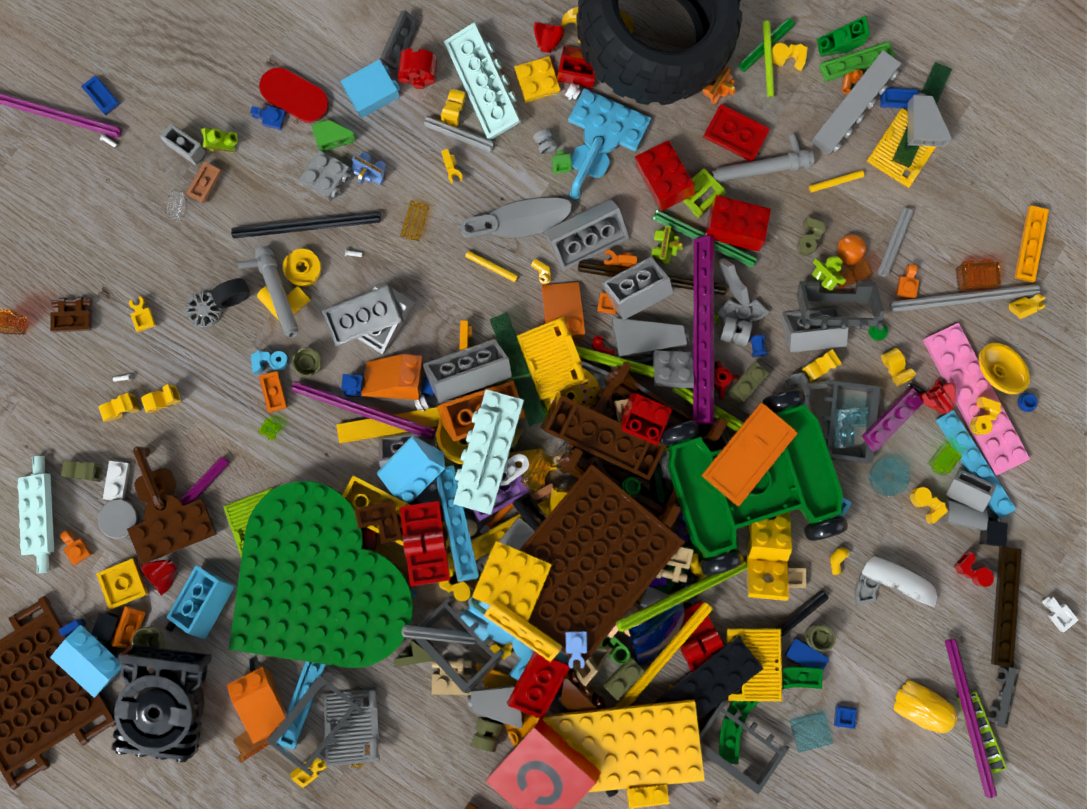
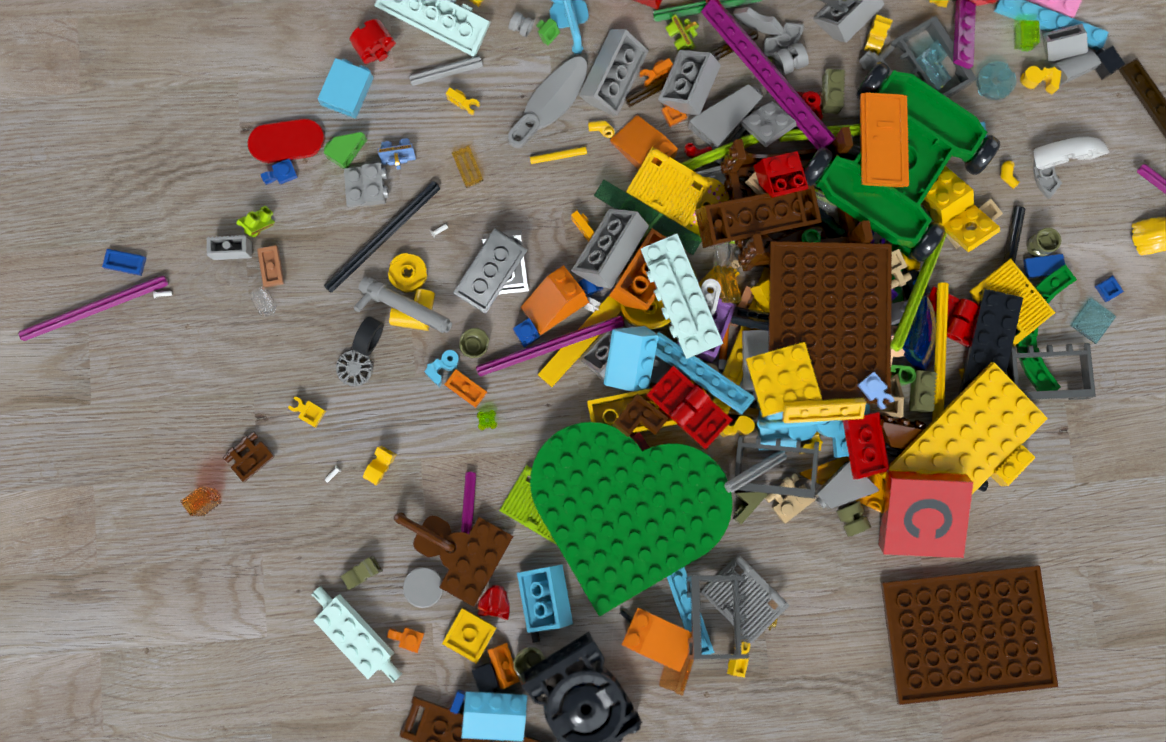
camera: 40 degrees left, 0 degrees up
(114, 409) = (349, 499): yellow leg -> none
(116, 481) = (396, 559): white plate -> none
(399, 39) = (337, 31): dark grey plate -> none
(454, 104) = (426, 52): yellow leg -> none
(758, 345) = (817, 56): blue bush -> none
(980, 576) = (1122, 103): red leg -> none

